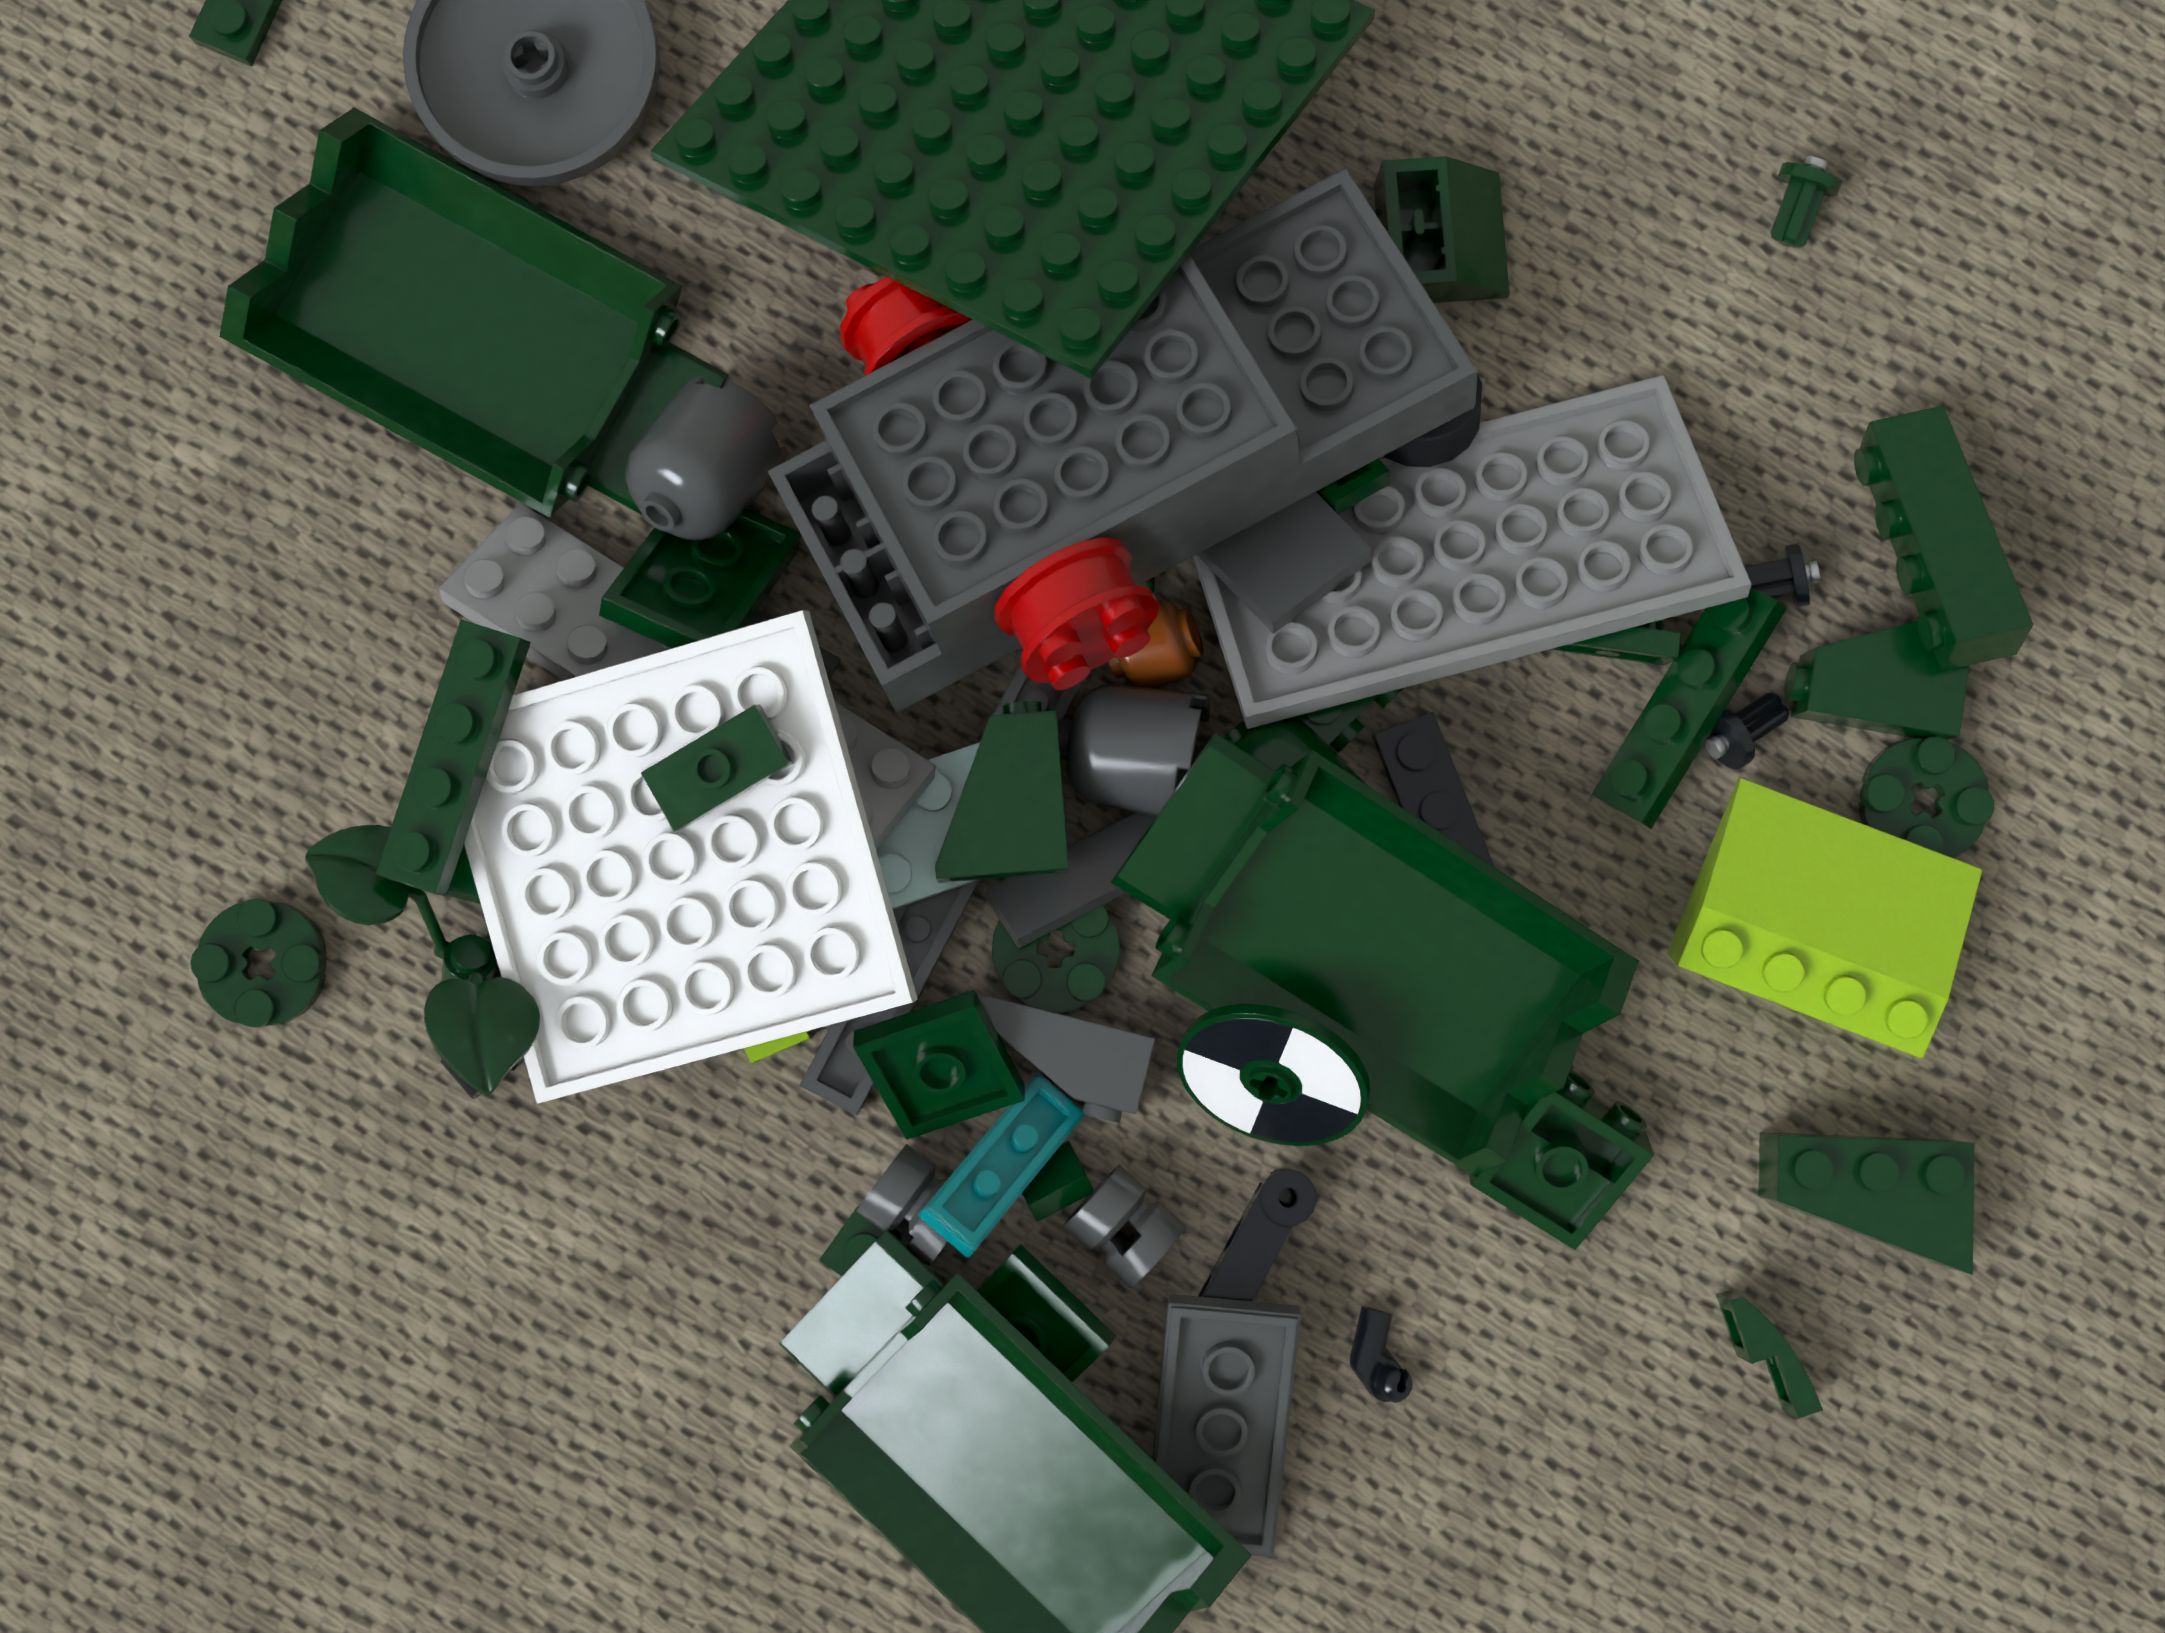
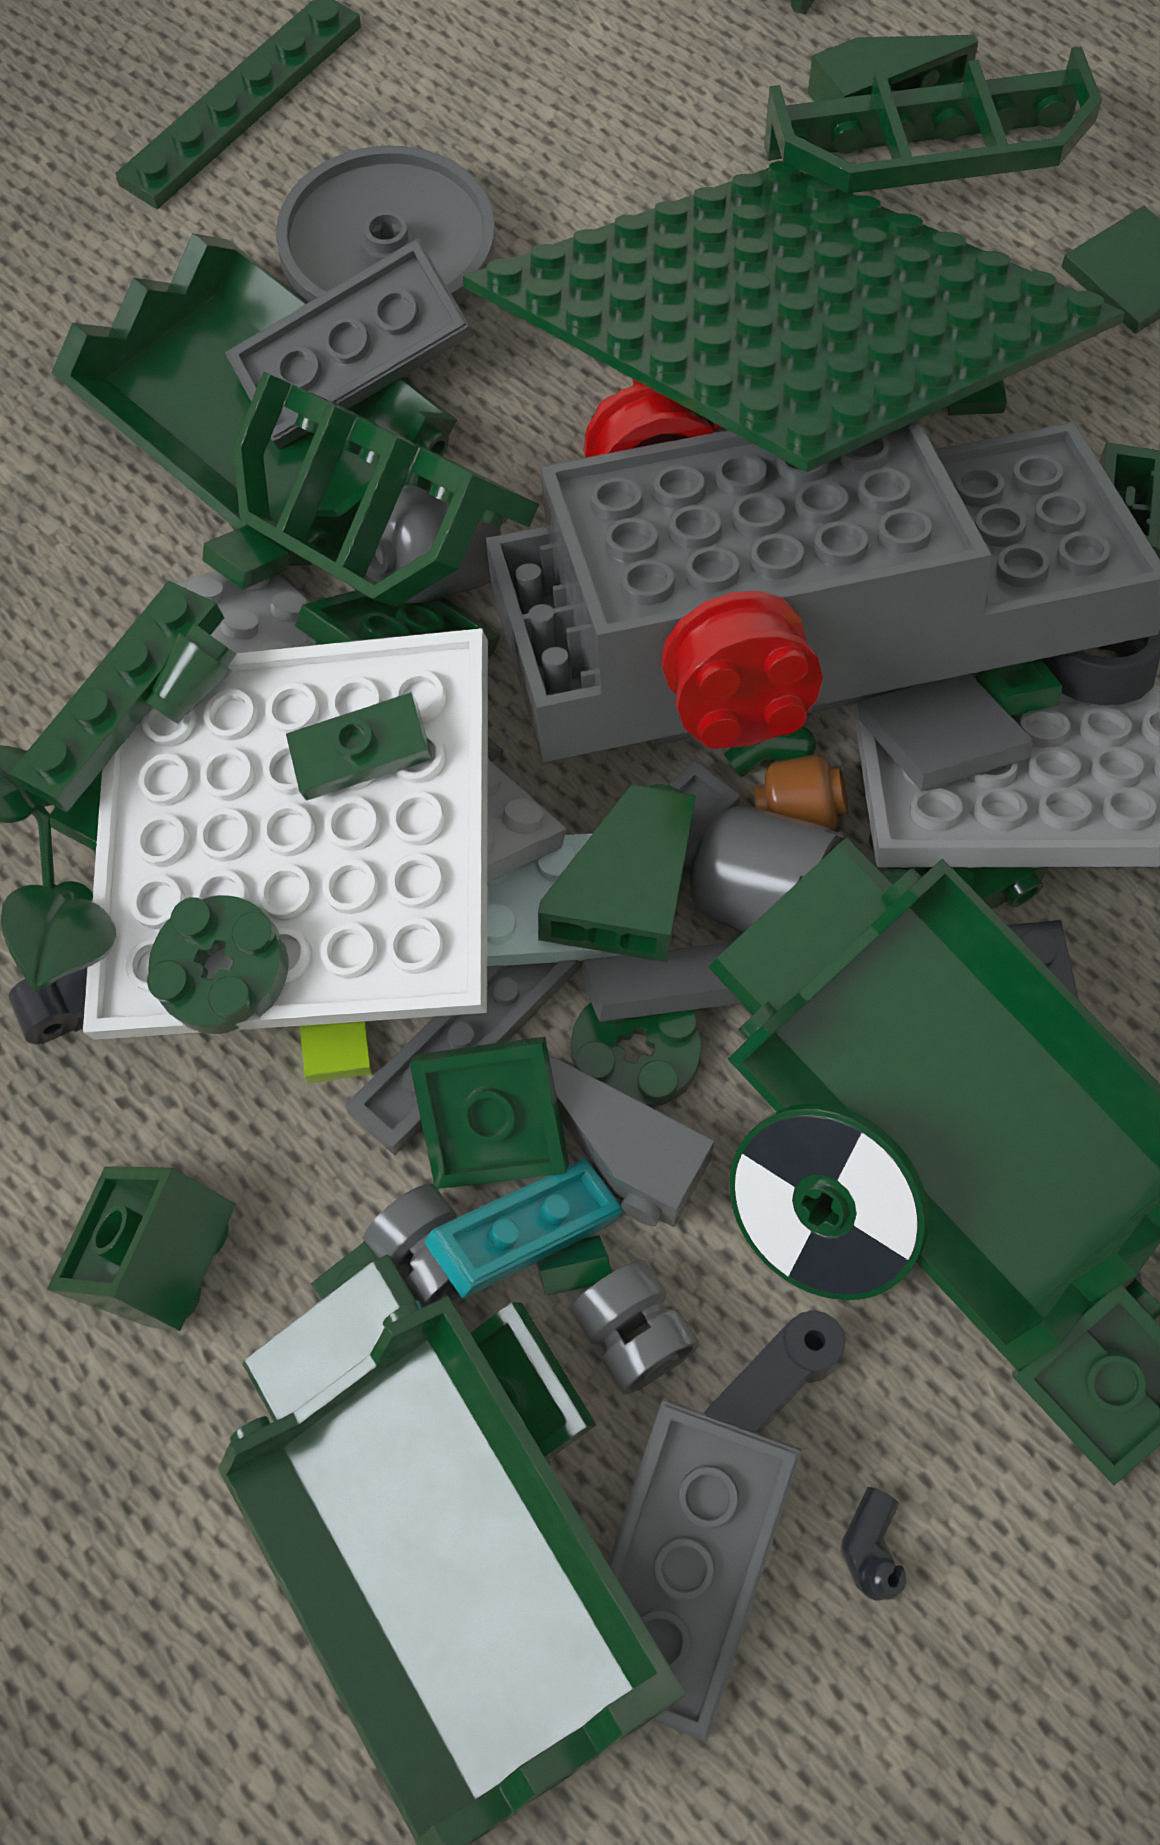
camera: 20 degrees right, 20 degrees down
(513, 525) = (245, 557): none -> dark green tile
(521, 723) = (190, 673): none -> dark green cone
(538, 223) = (356, 335): none -> dark grey tile
(619, 1043) = (193, 935): none -> dark green plate
(653, 1269) = (144, 1245): none -> dark green slope
(668, 409) = (396, 462): none -> dark green plate

